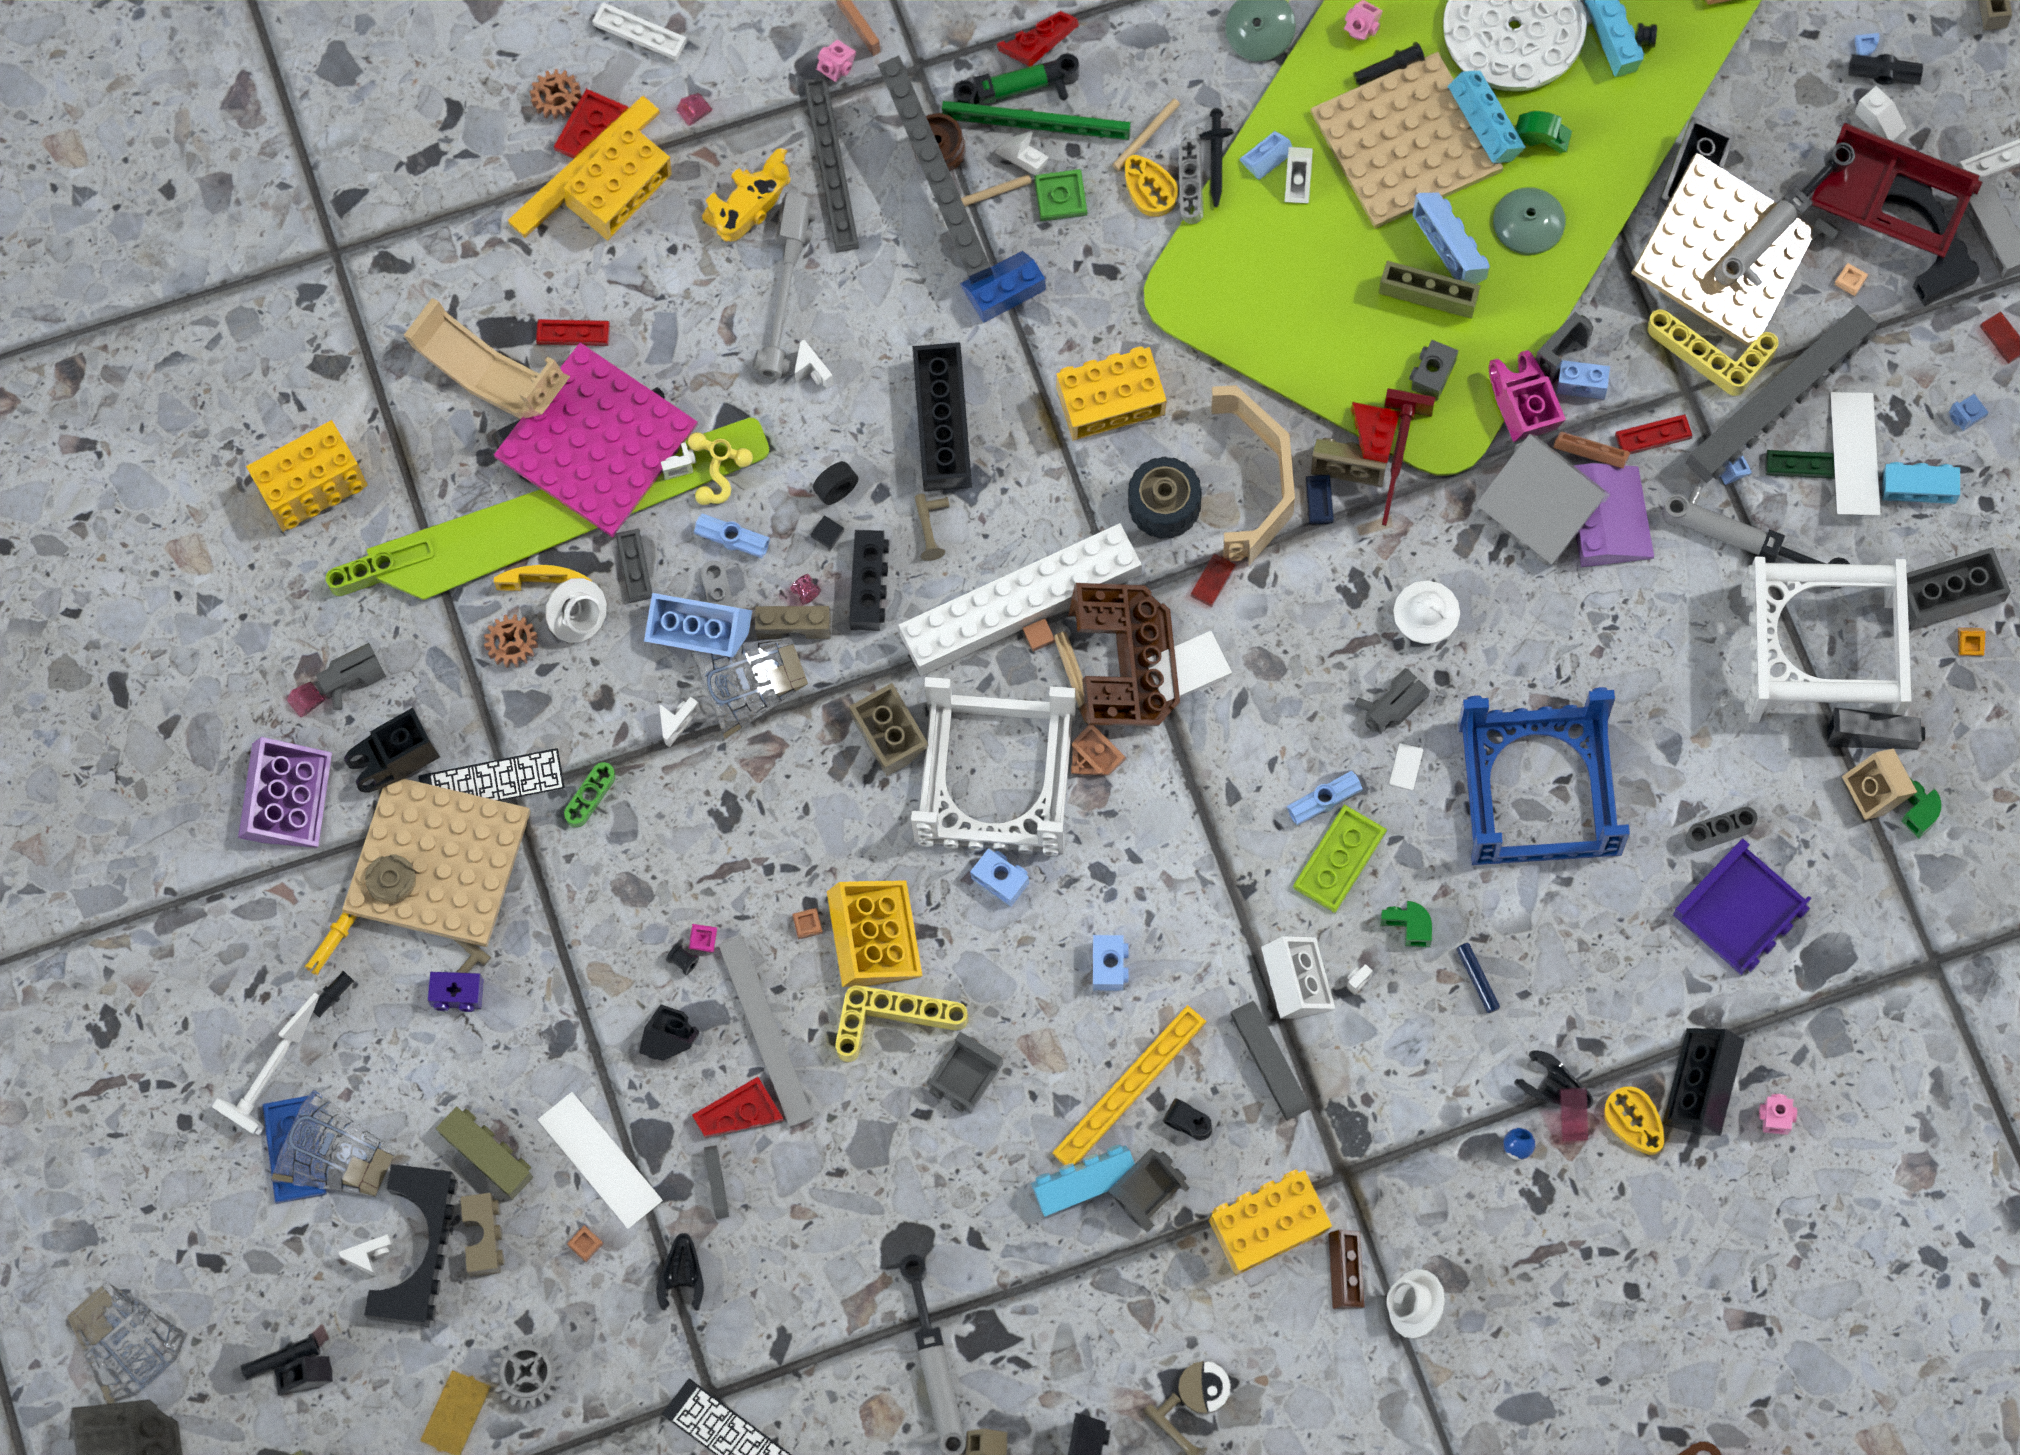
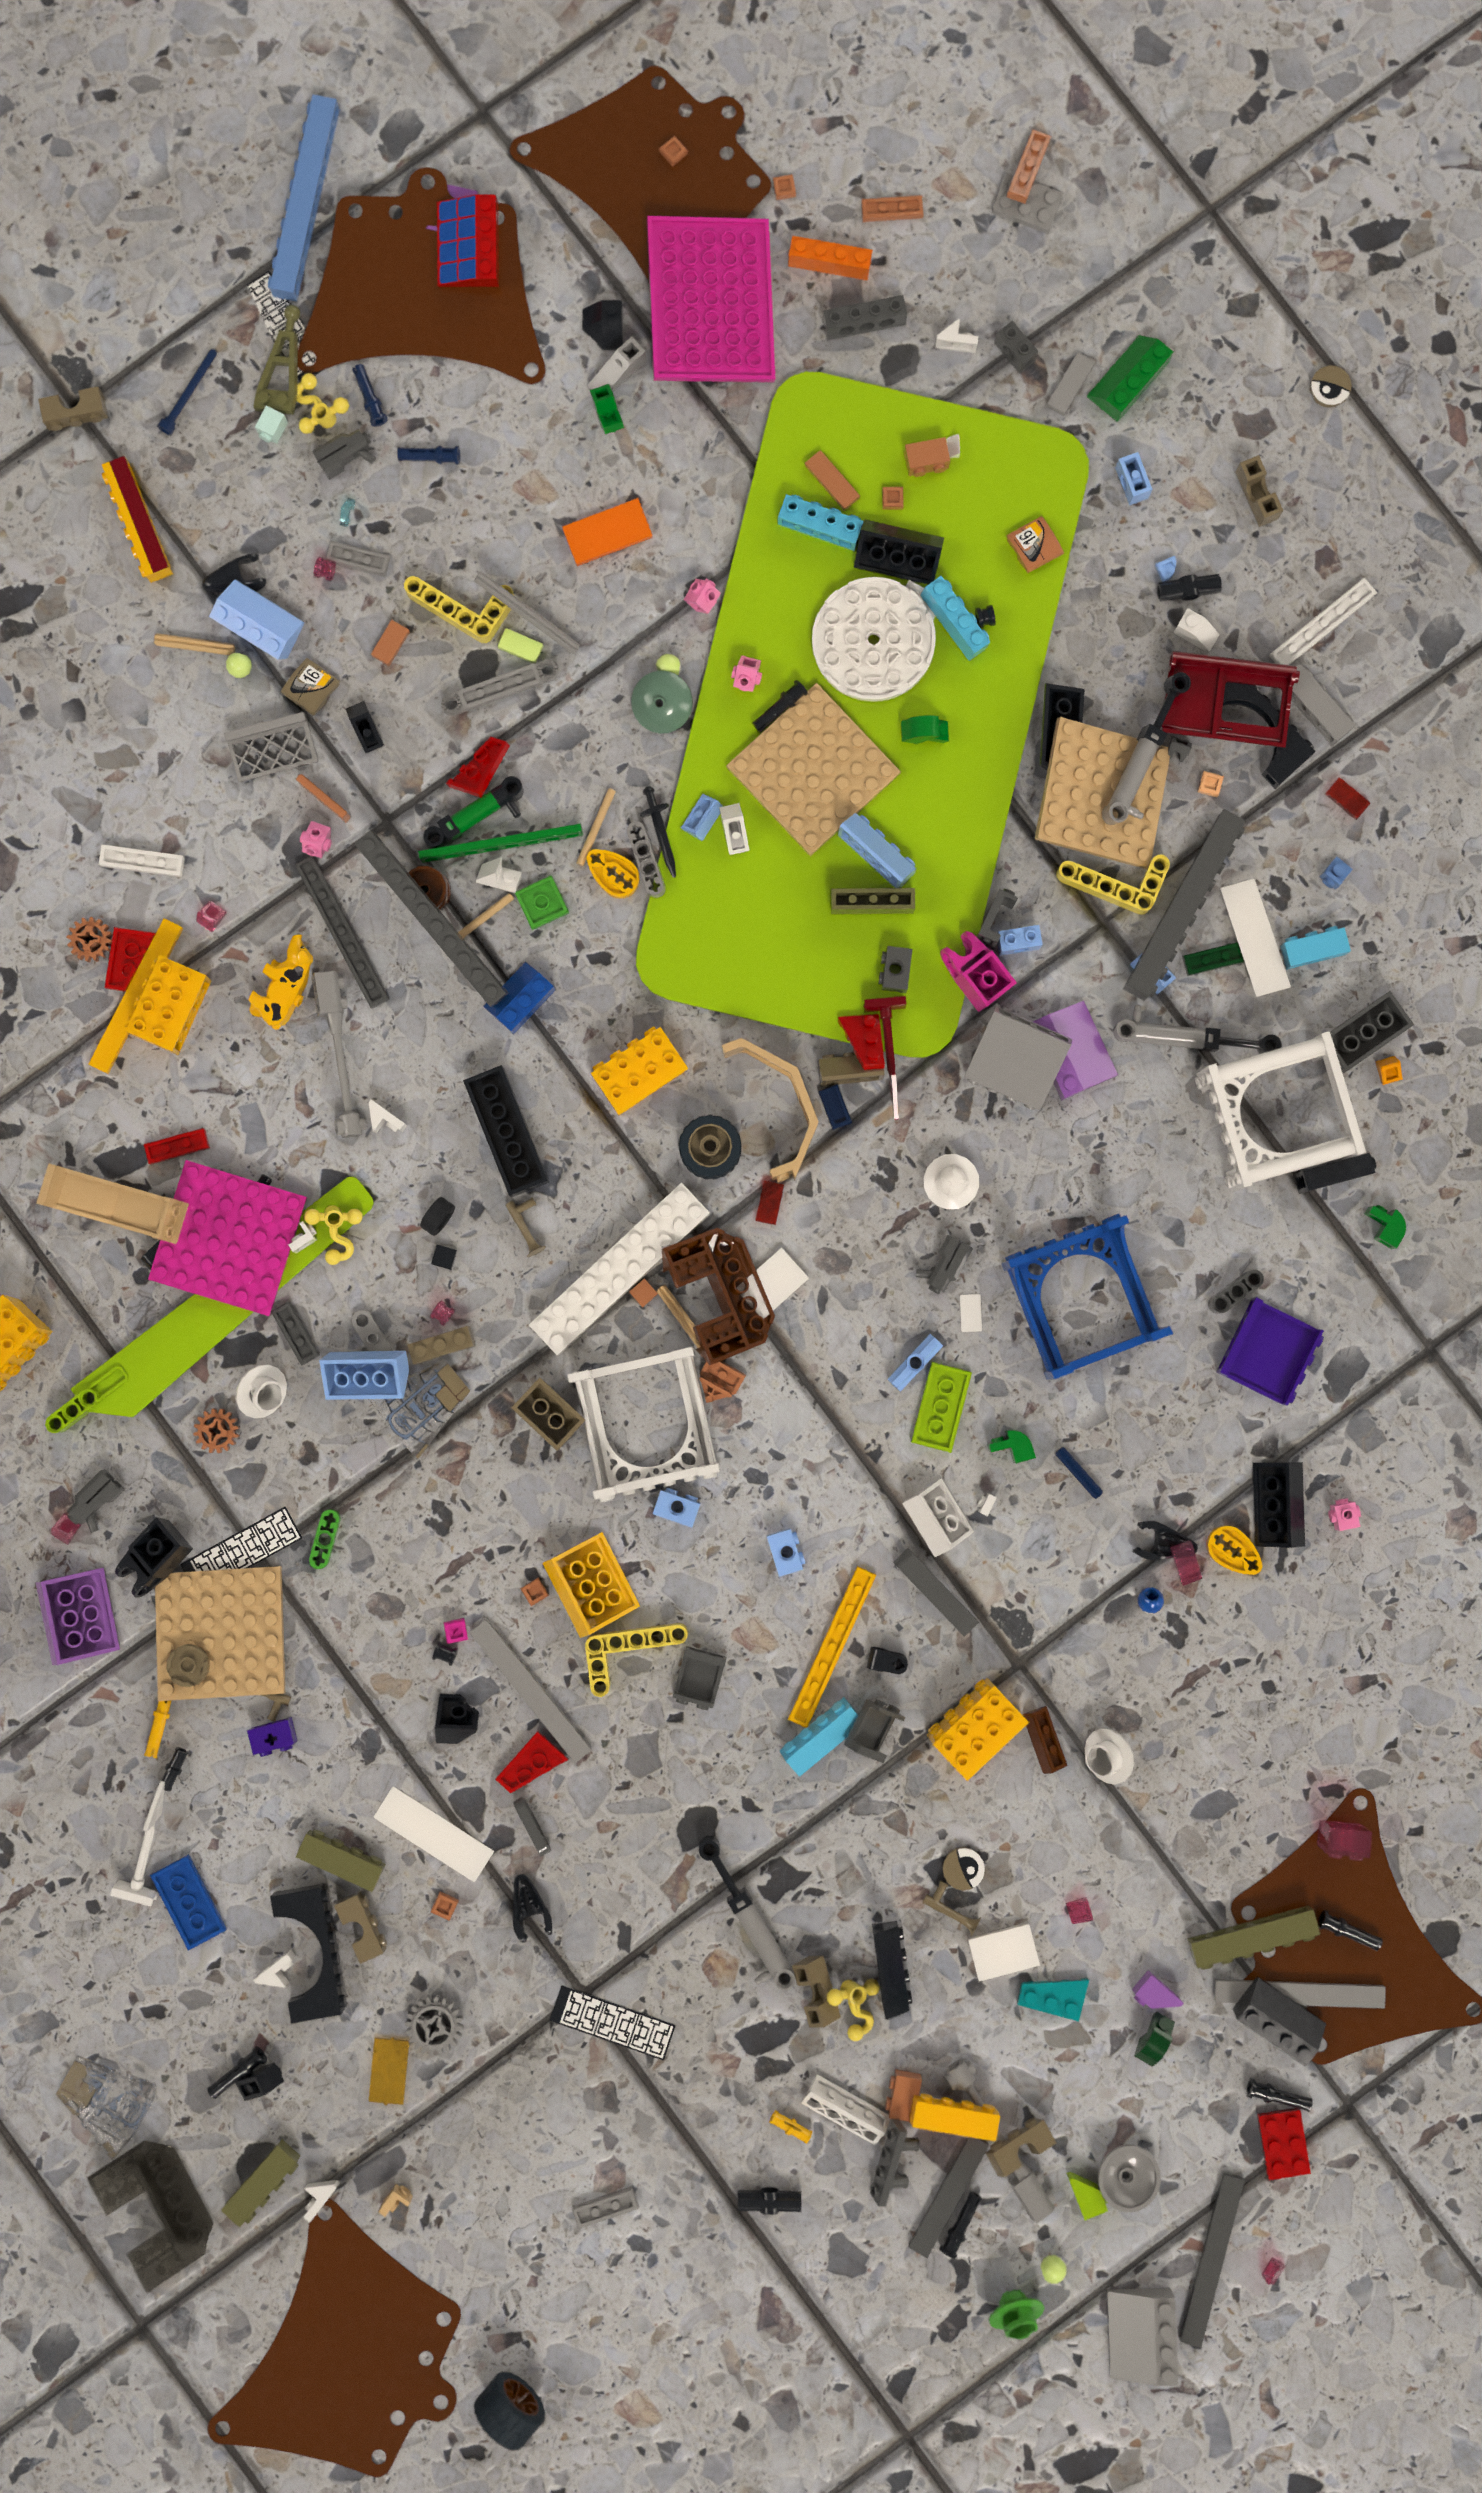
camera: 20 degrees left, 15 degrees up
(332, 1151) = (219, 1897): wedge -> none
(512, 579) = (202, 1377): yellow slope -> none
(673, 724) = (372, 1462): white slope -> none
(746, 540) = (354, 1285): light blue piece -> none
(867, 543) = (477, 1260): black brick -> none
(1486, 116) = (874, 731): medium azure brick -> none
(1529, 233) = (932, 825): sand green dish -> none
(1591, 449) = (1043, 999): nougat tile -> none
(1654, 434) = (1088, 969): red tile -> none
(1879, 784) = (1352, 1219): tan brick -> none

